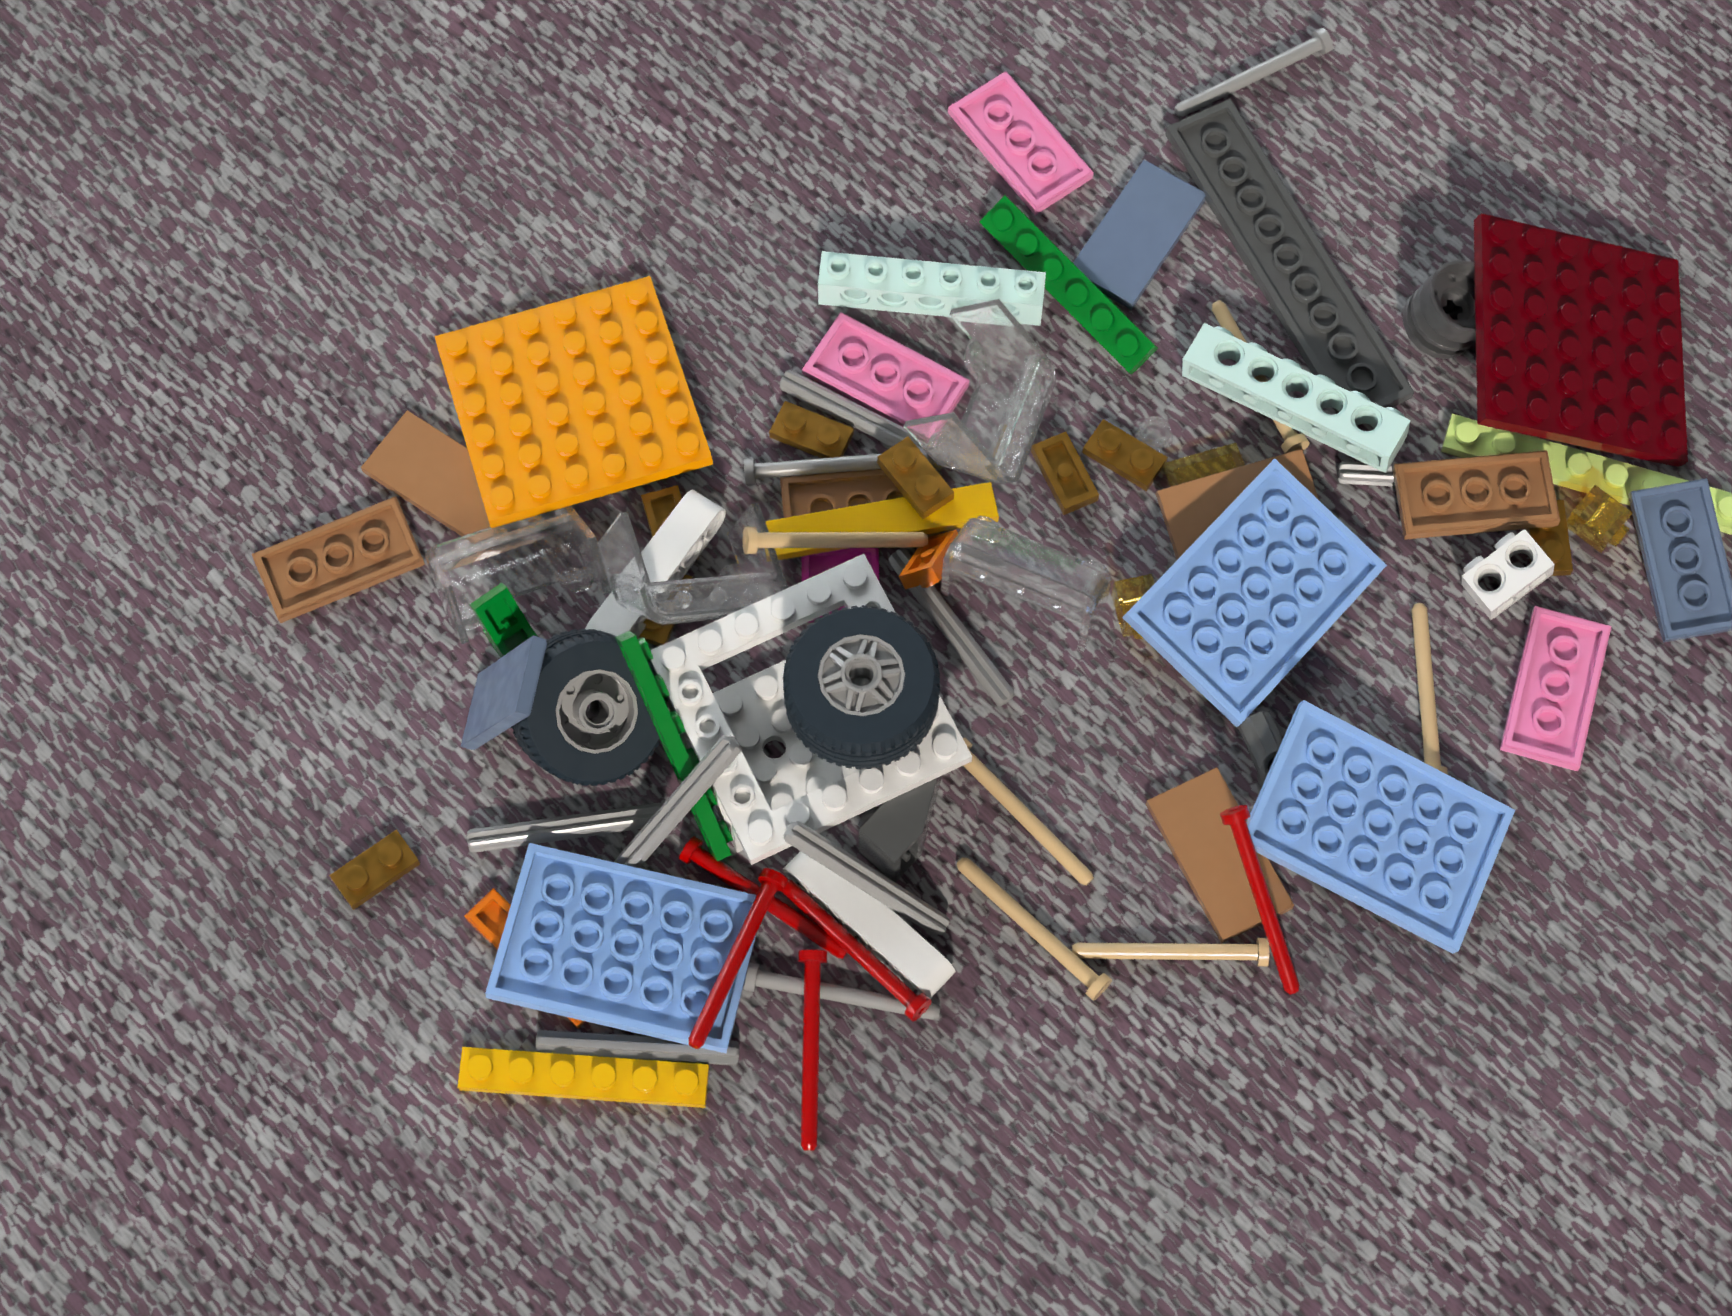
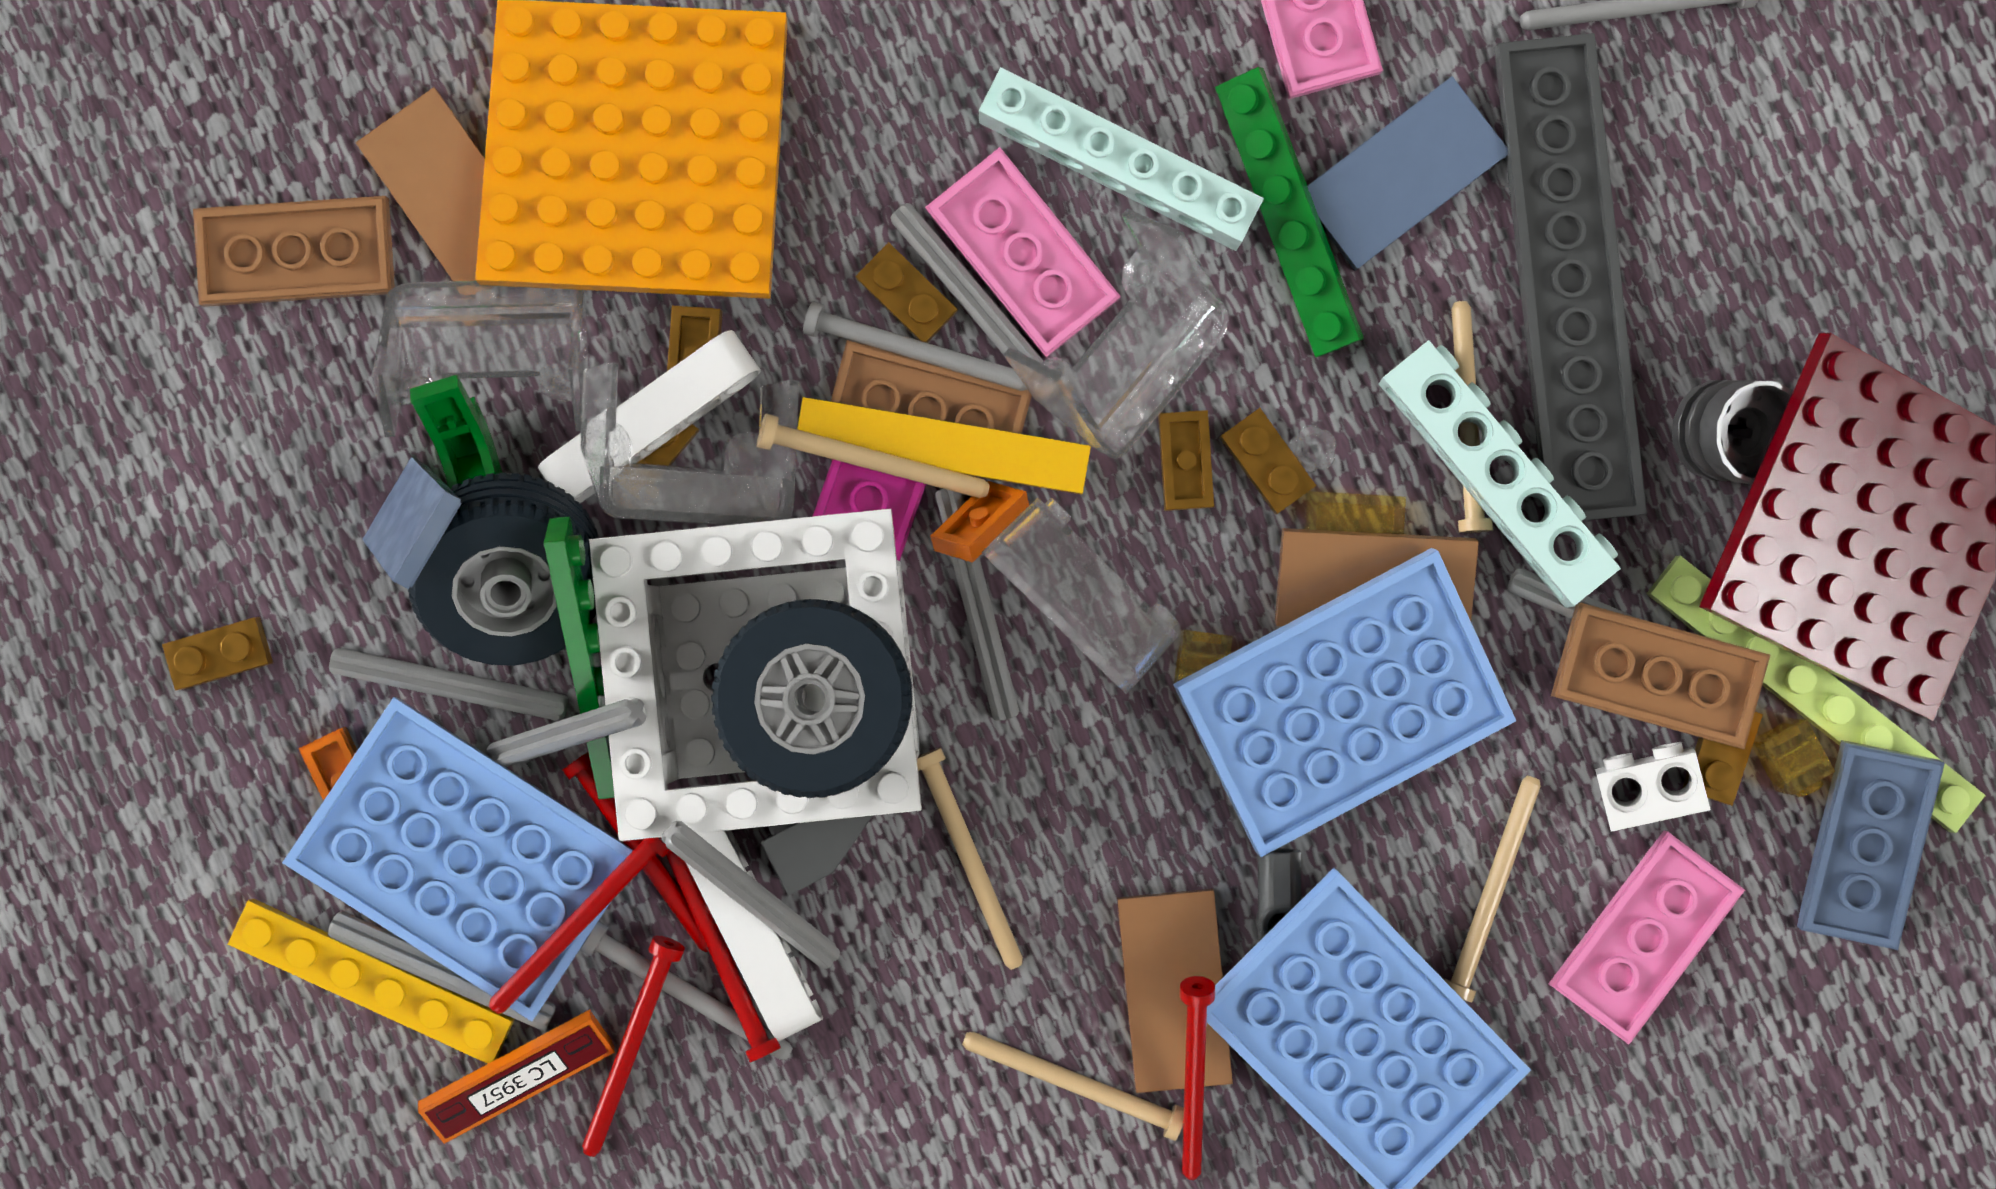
camera: 20 degrees right, 20 degrees up
(728, 1106) = (516, 1076): none -> tile
(915, 477) = (1001, 410): pearl gold plate -> none
(1095, 984) = (974, 1089): tan bar -> none

